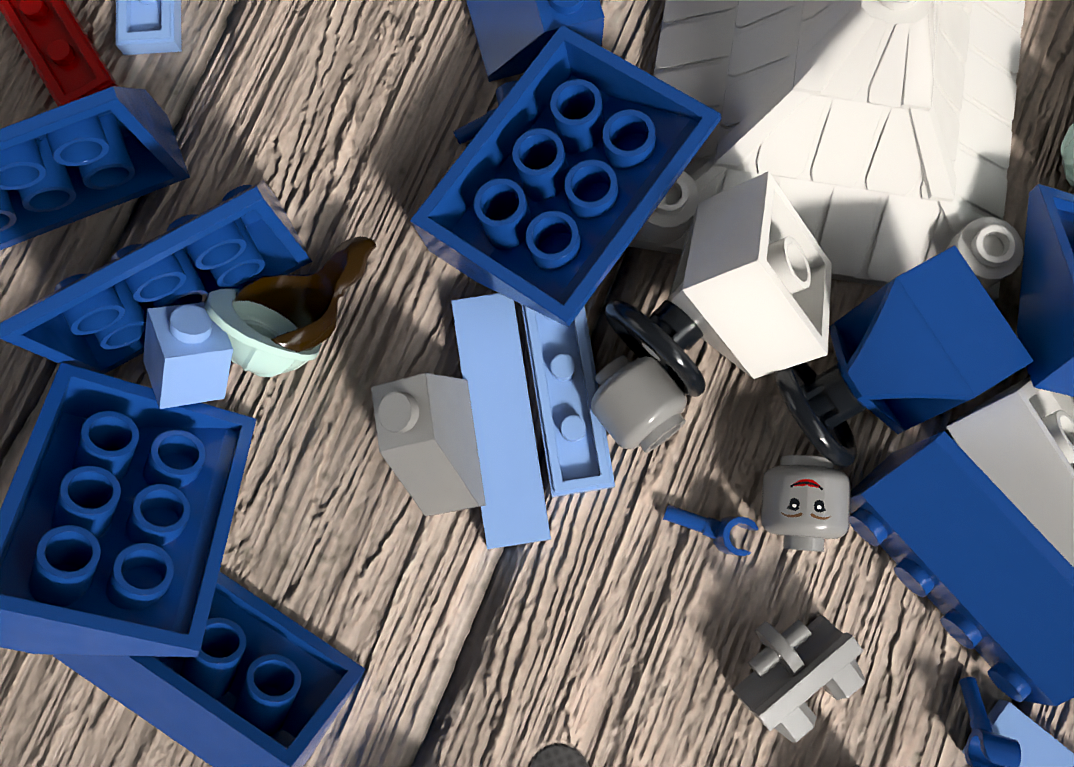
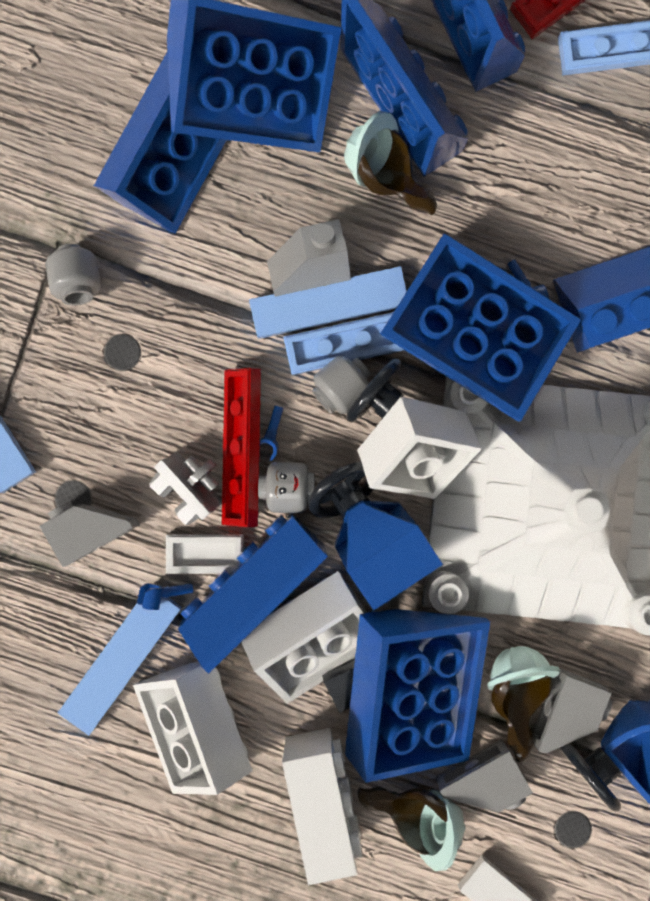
camera: 80 degrees right, 10 degrees up
(186, 355) = (351, 103): light blue brick -> none
(736, 577) = (241, 447): none -> red tile
(908, 656) = (203, 553): none -> white tile

